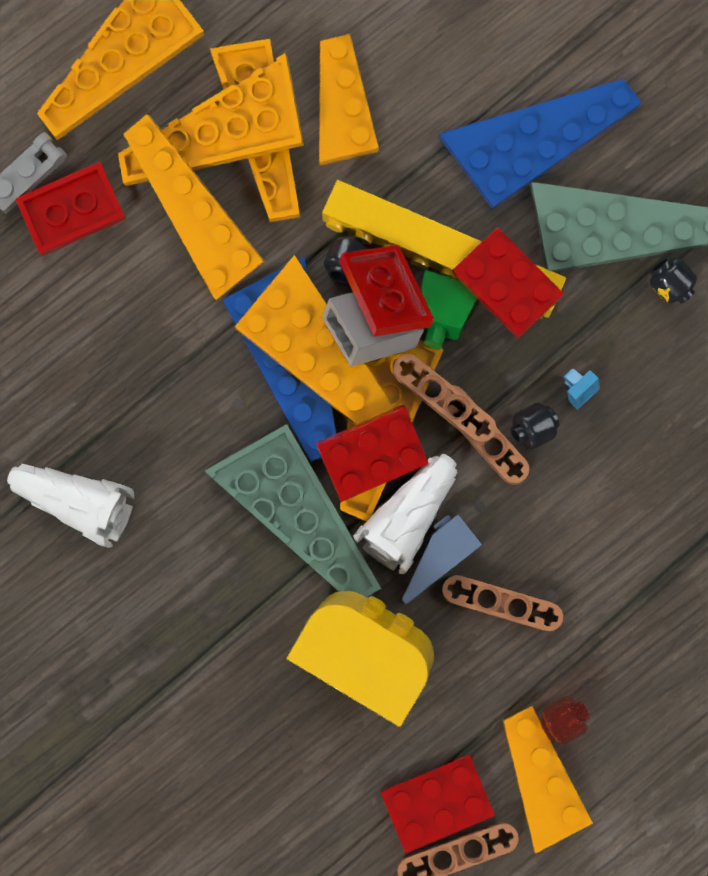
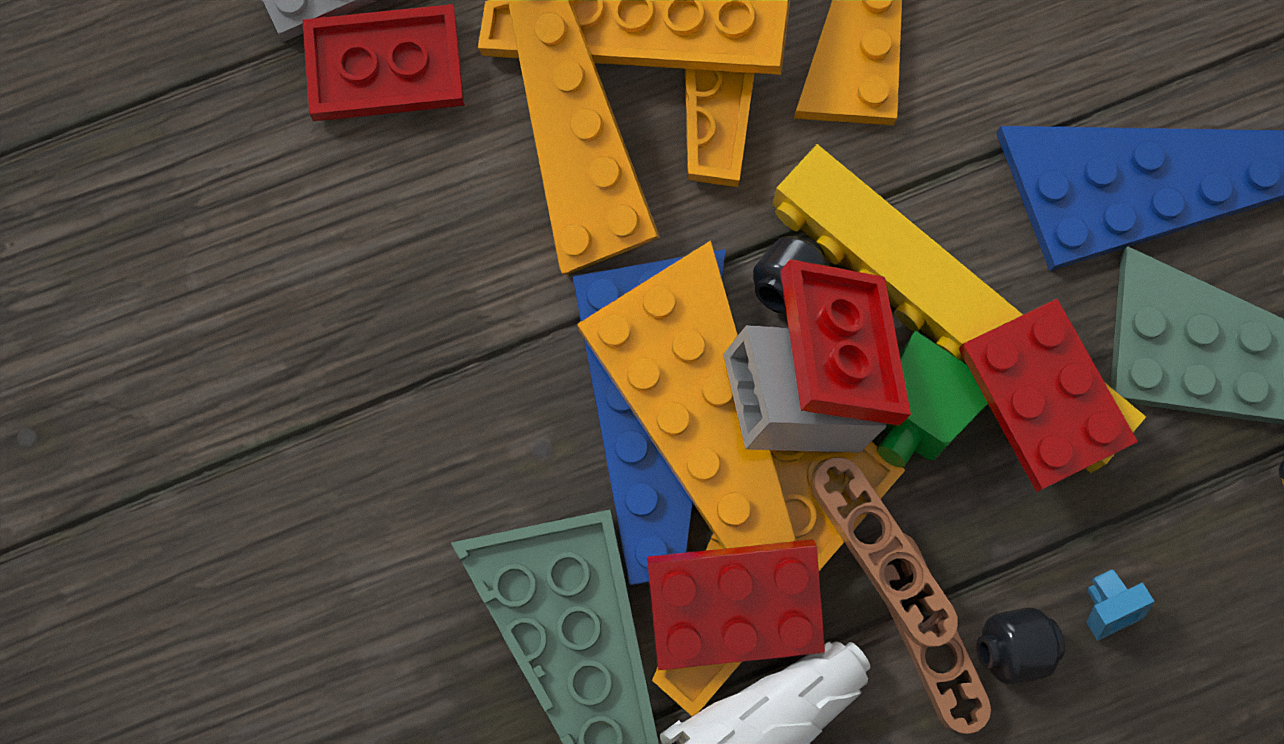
camera: 15 degrees right, 5 degrees down
(82, 503) = (233, 532): white cone -> none

